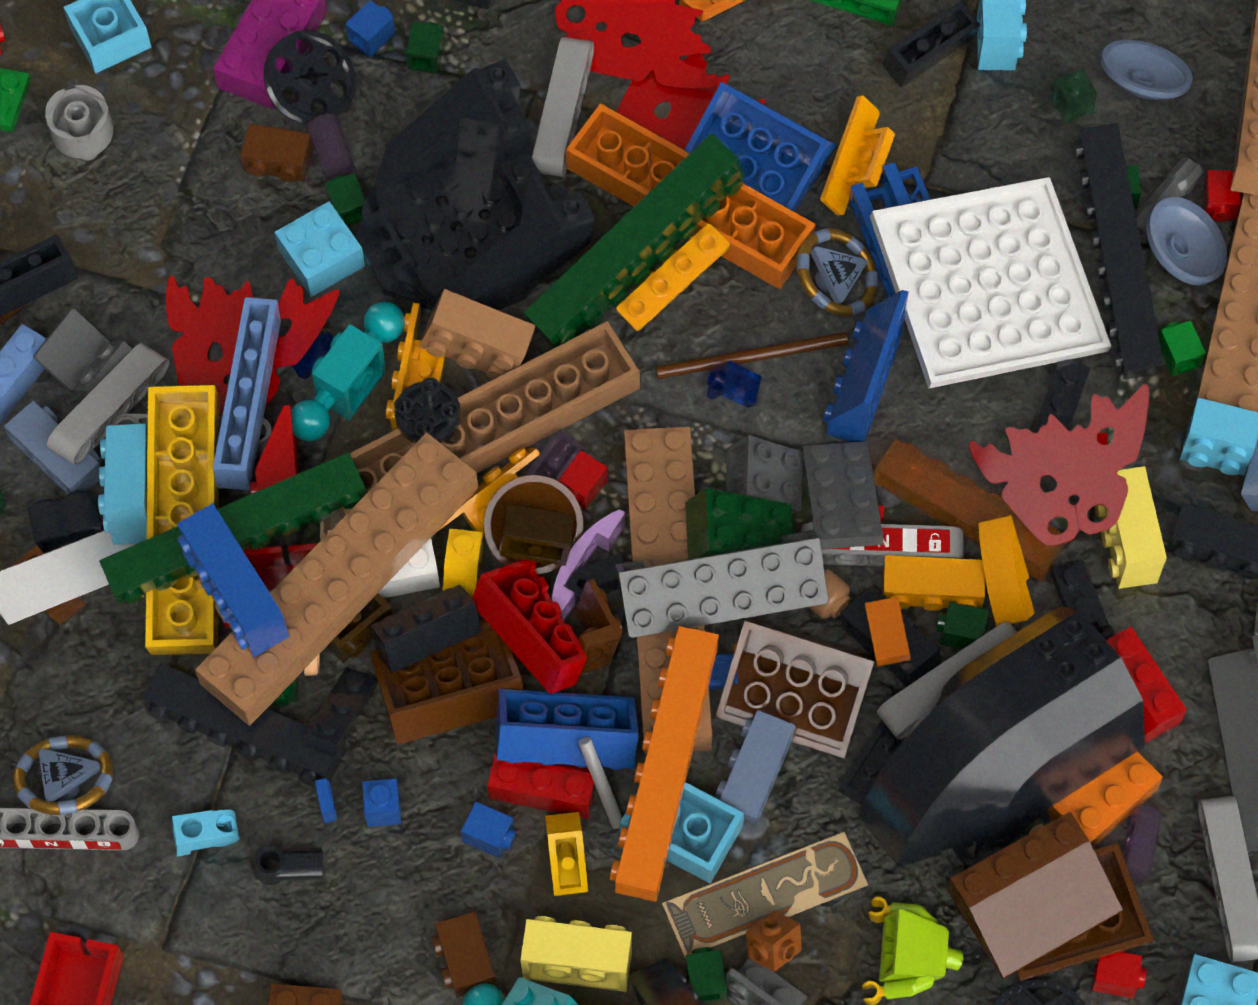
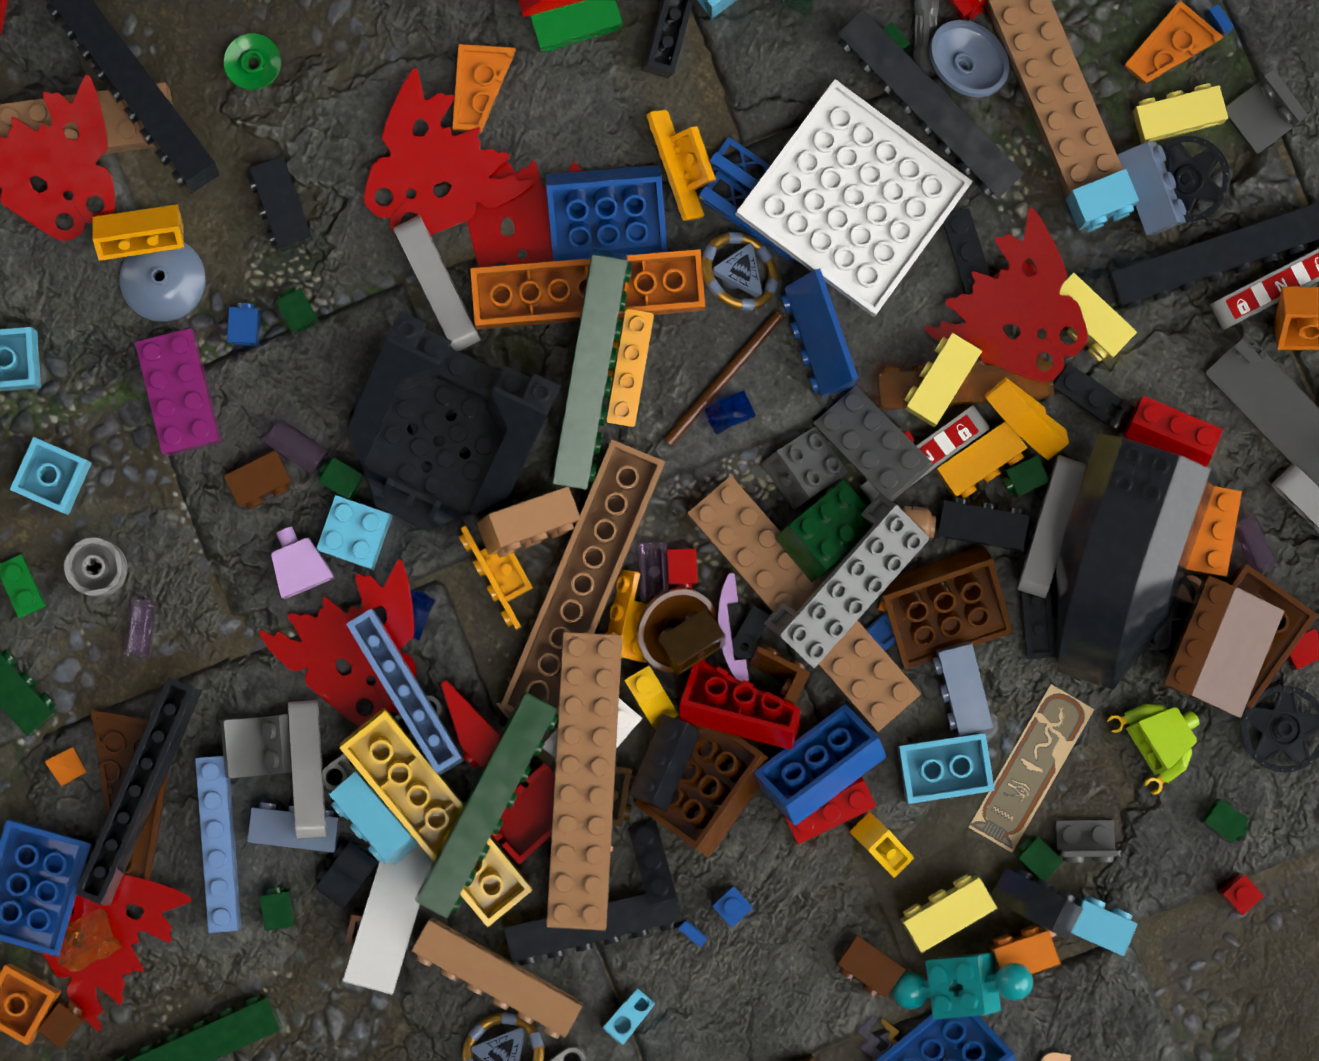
camera: 40 degrees left, 20 degrees up
(72, 199) = (140, 628): none -> clear purple brick
(115, 702) = (498, 977): none -> medium nougat brick
(231, 581) = (531, 854): blue brick -> none
(248, 243) = (298, 564): none -> lavender torso
(293, 864) = (706, 992): black piece -> none
(315, 66) = (225, 406): black wedge -> none
(348, 371) = (456, 614): teal brick -> none
(429, 409) = (543, 608): black tile -> none
(488, 830) = (818, 869): blue brick -> none
(600, 781) = (872, 783): light grey bar -> none
(666, 764) = (911, 741): orange brick -> none
(773, 940) = (1067, 803): dark orange brick -> none
(887, 631) = (984, 528): orange tile -> none
(950, 478) = (942, 379): none -> light yellow brick
(1181, 348) = (1021, 145): green brick -> none

